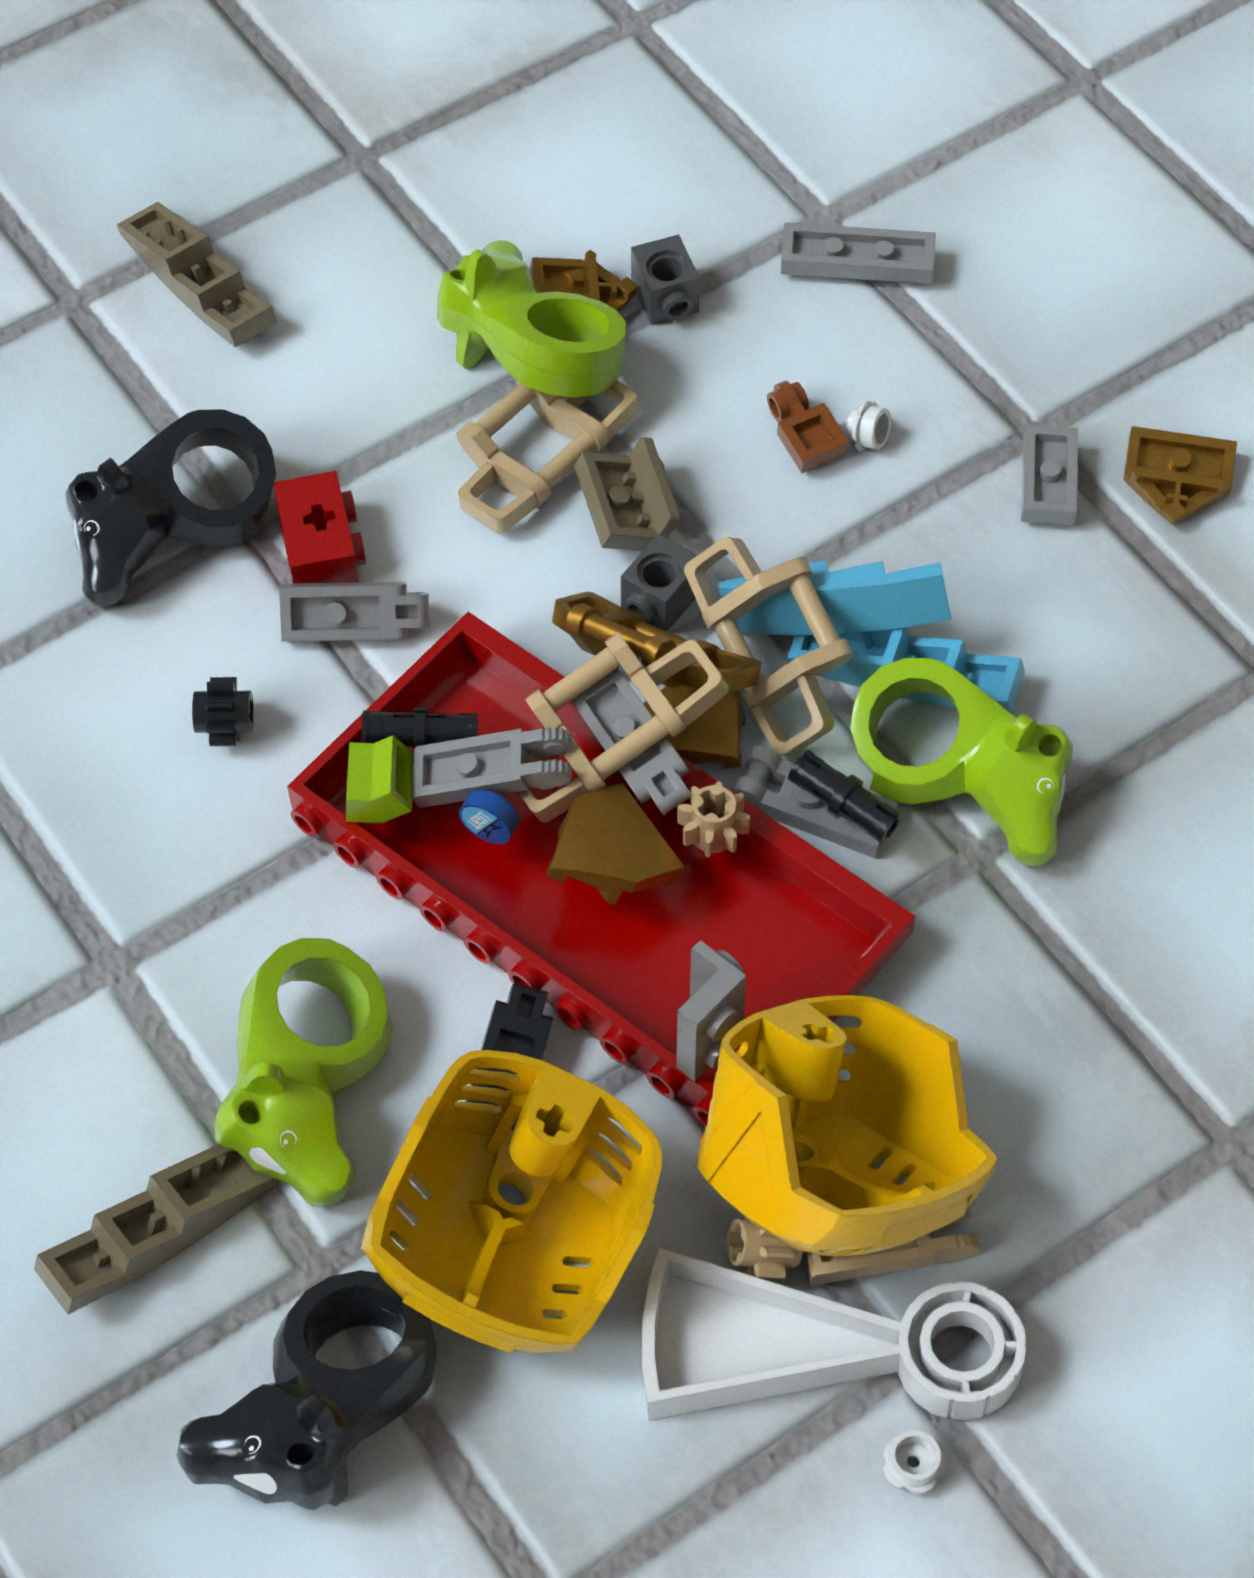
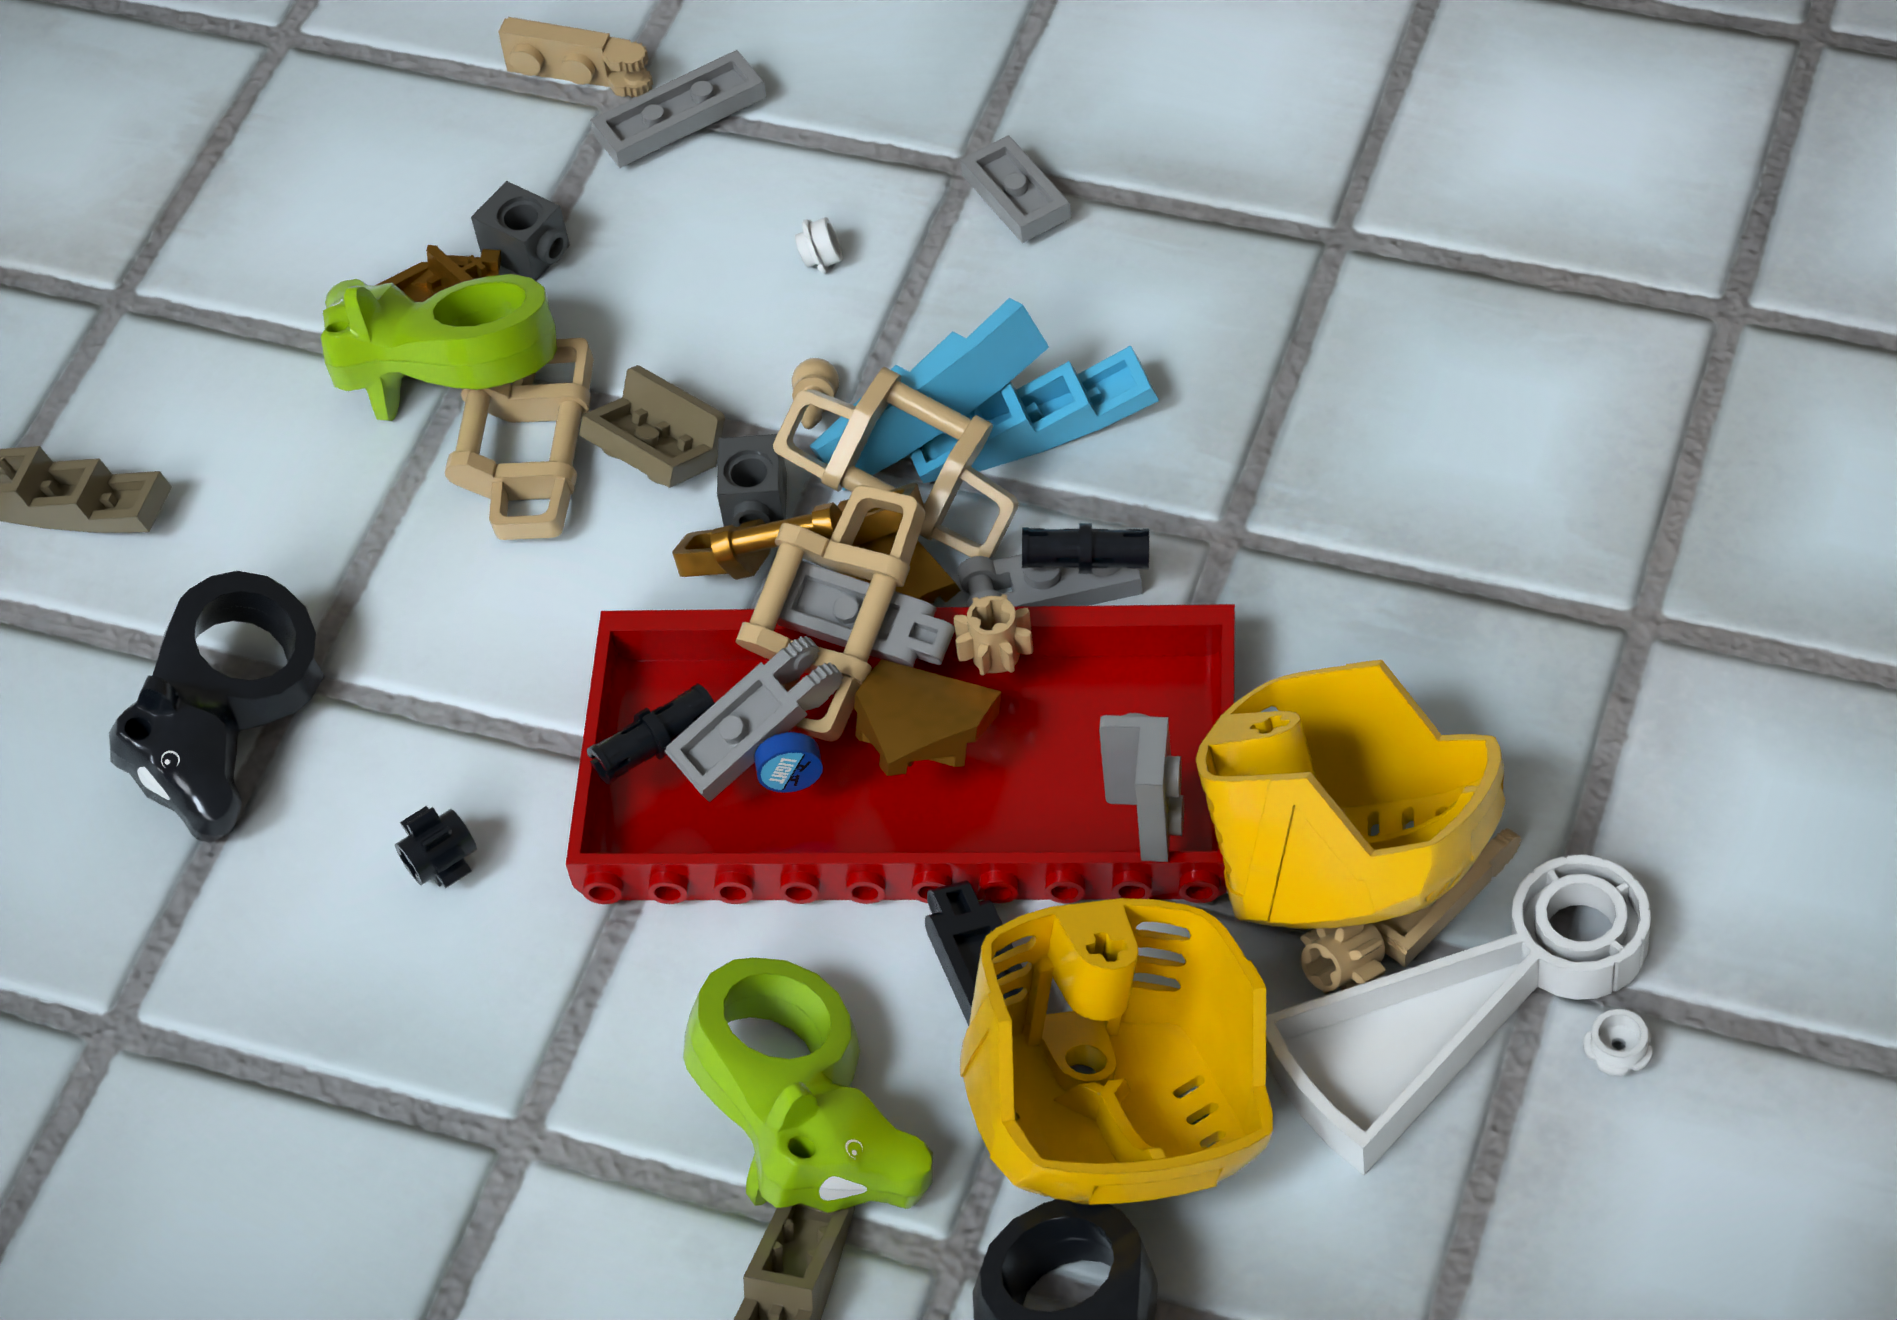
camera: 30 degrees left, 5 degrees down
(317, 531) = (385, 641): red brick -> none
(350, 611) = (478, 686): light grey hinge -> none
(379, 781) = (653, 801): lime piece -> none
(775, 535) = (818, 376): none -> tan bar
(807, 434) = (771, 283): dark orange plate -> none
(817, 165) = (575, 56): none -> tan hinge
(1000, 760) = (1190, 435): lime animal -> none
(1178, 471) = (1119, 122): pearl gold slope -> none

